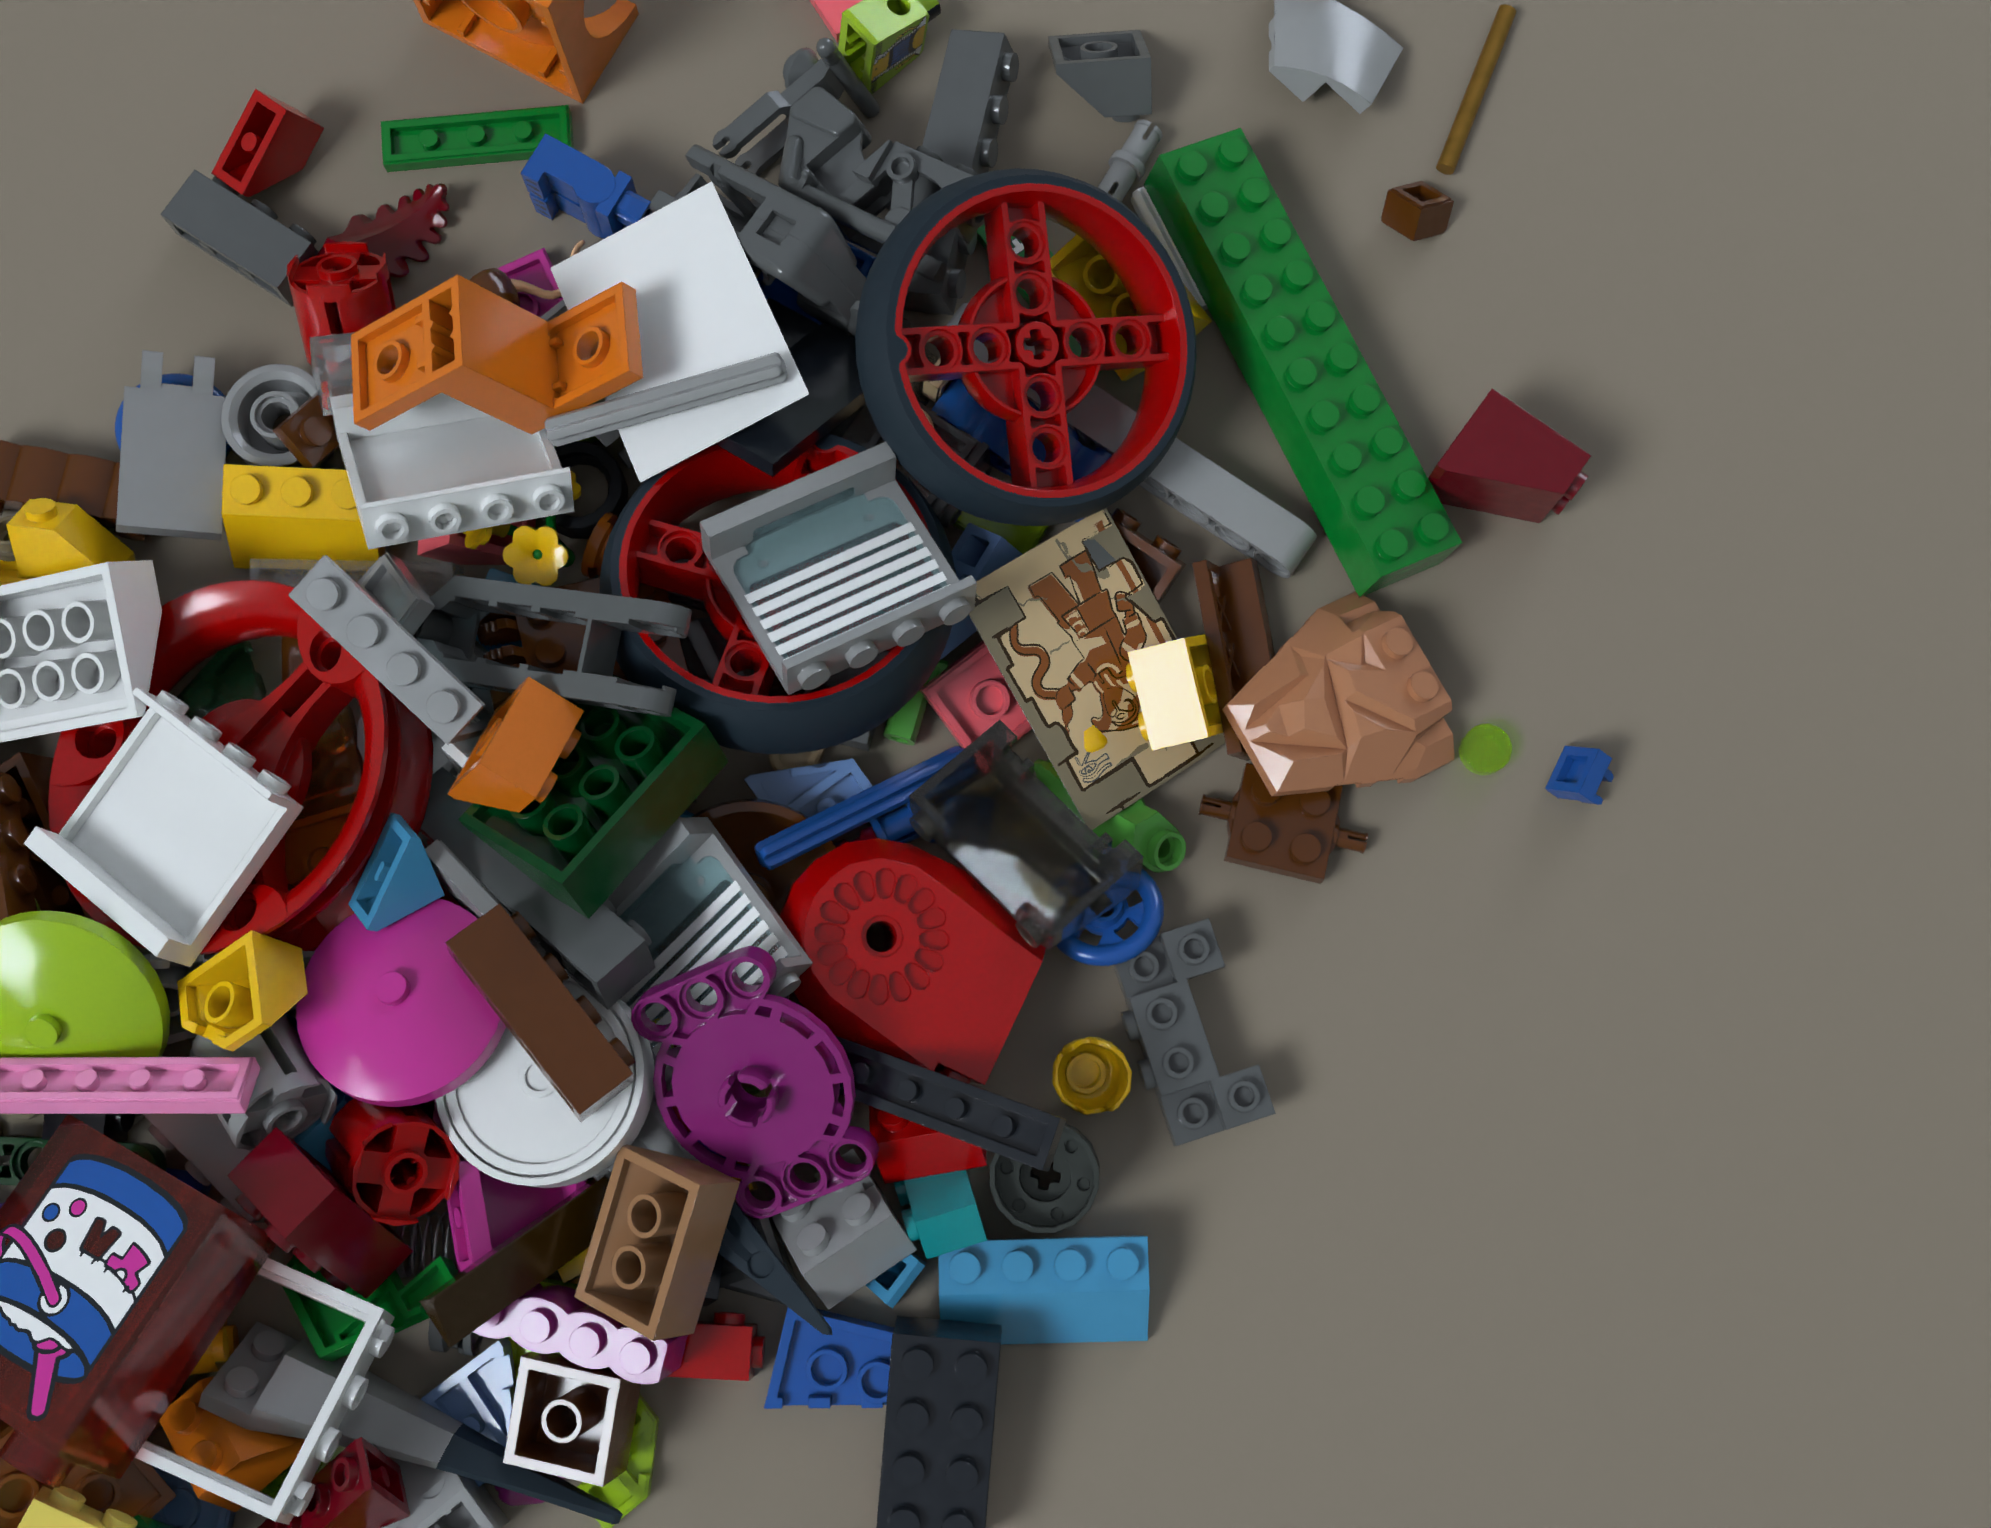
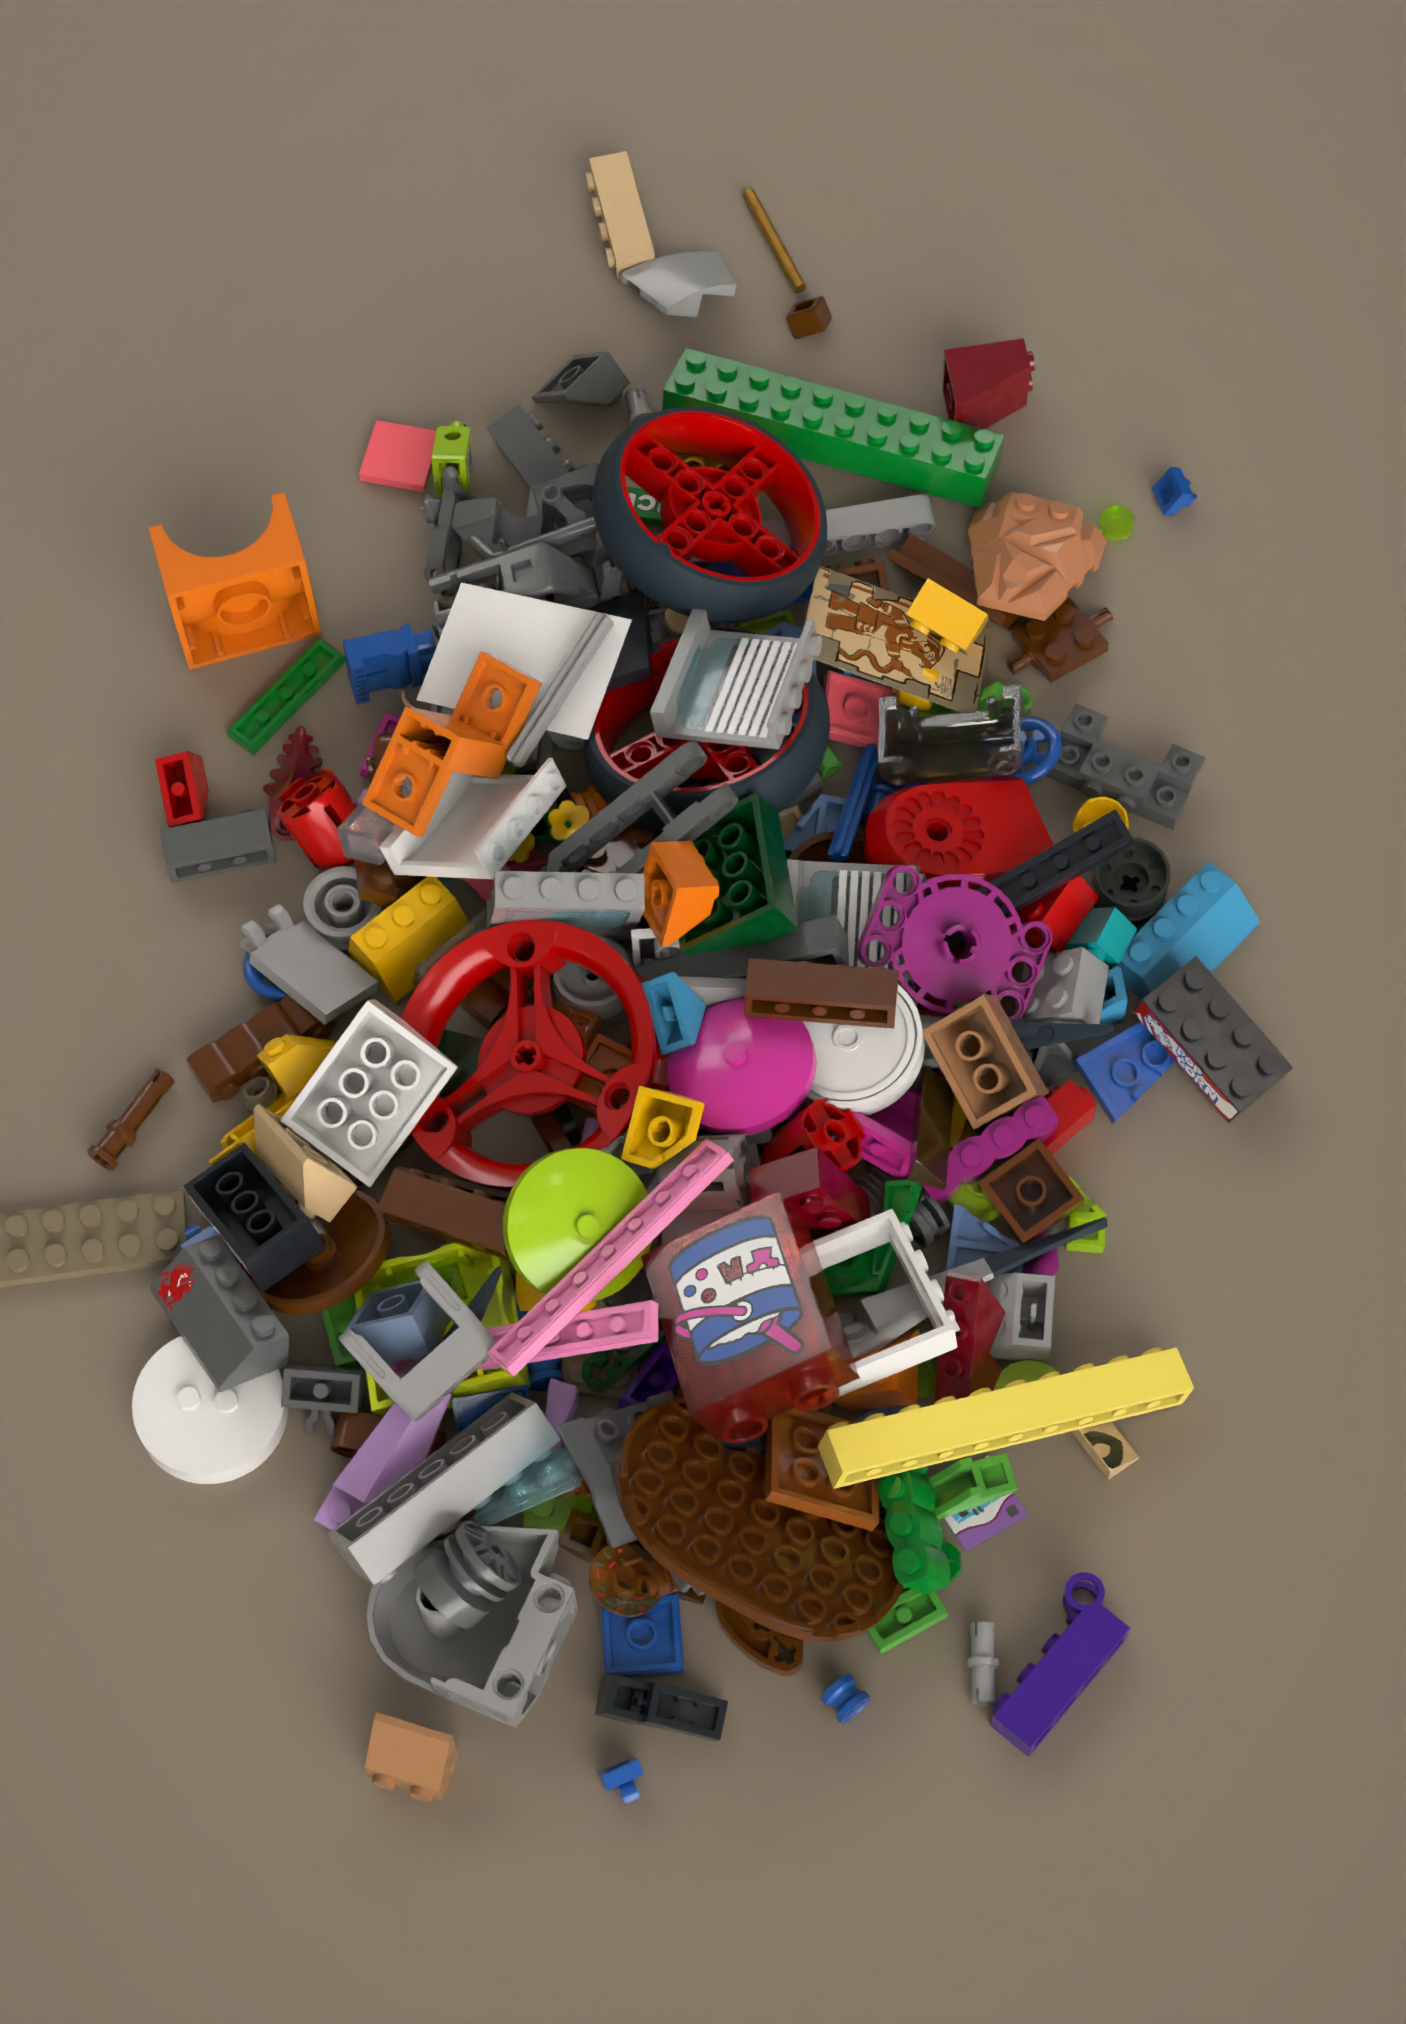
camera: 40 degrees left, 15 degrees down
(171, 831) = (536, 1090): white panel -> none

